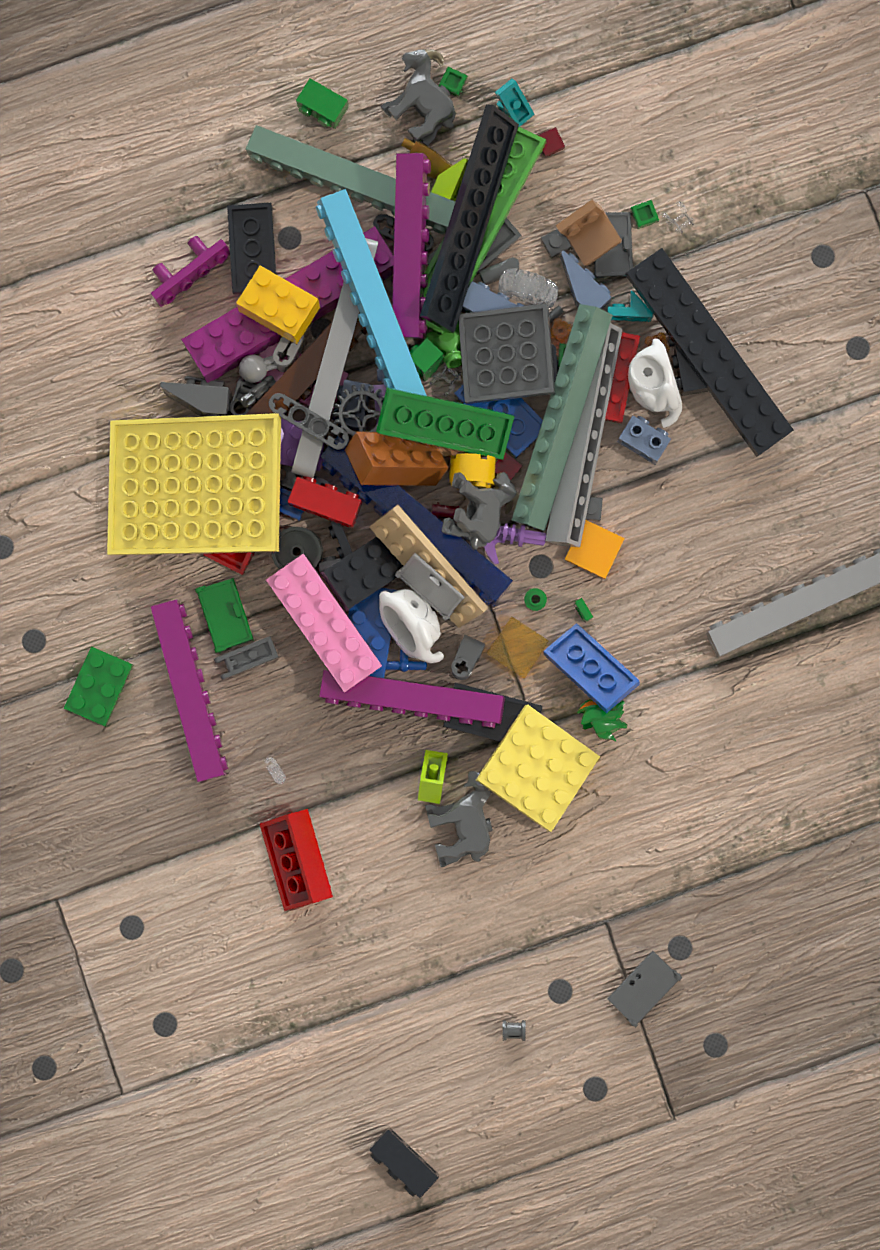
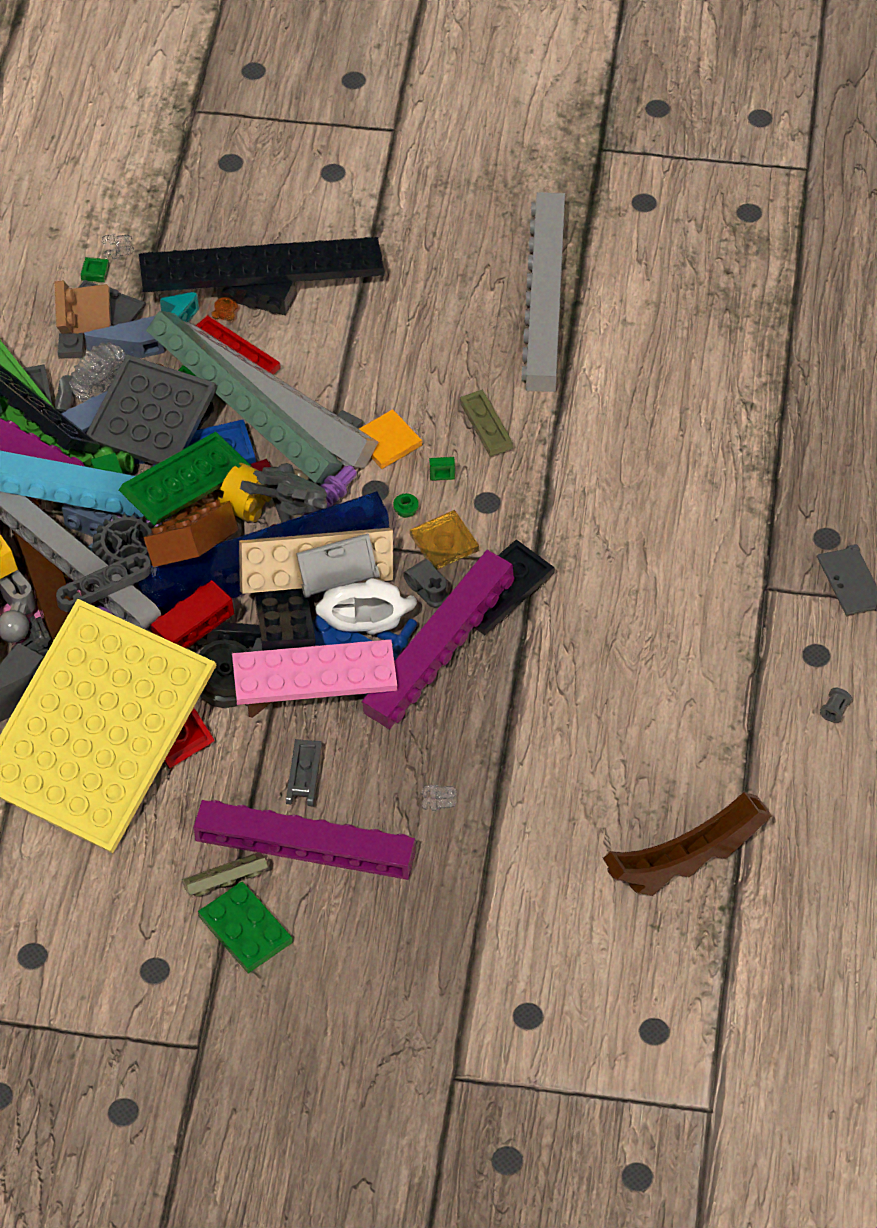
camera: 65 degrees left, 30 degrees down
(130, 648) = (225, 874): none -> olive plate
(220, 607) = (229, 776): green door -> none
(296, 860) = (545, 821): red slope -> none
(314, 982) = (717, 837): none -> reddish brown arch
(432, 776) = (532, 662): lime slope -> none
(469, 823) = (594, 649): dark grey animal -> none
(538, 768) = (576, 566): light yellow plate -> none
(591, 668) = (503, 477): plate -> none
(602, 722) = (558, 493): green hair -> none
(644, 439) = (308, 354): sand blue brick -> none
(650, 620) = (486, 423): none -> olive plate
(654, 382) = (260, 314): white piece -> none

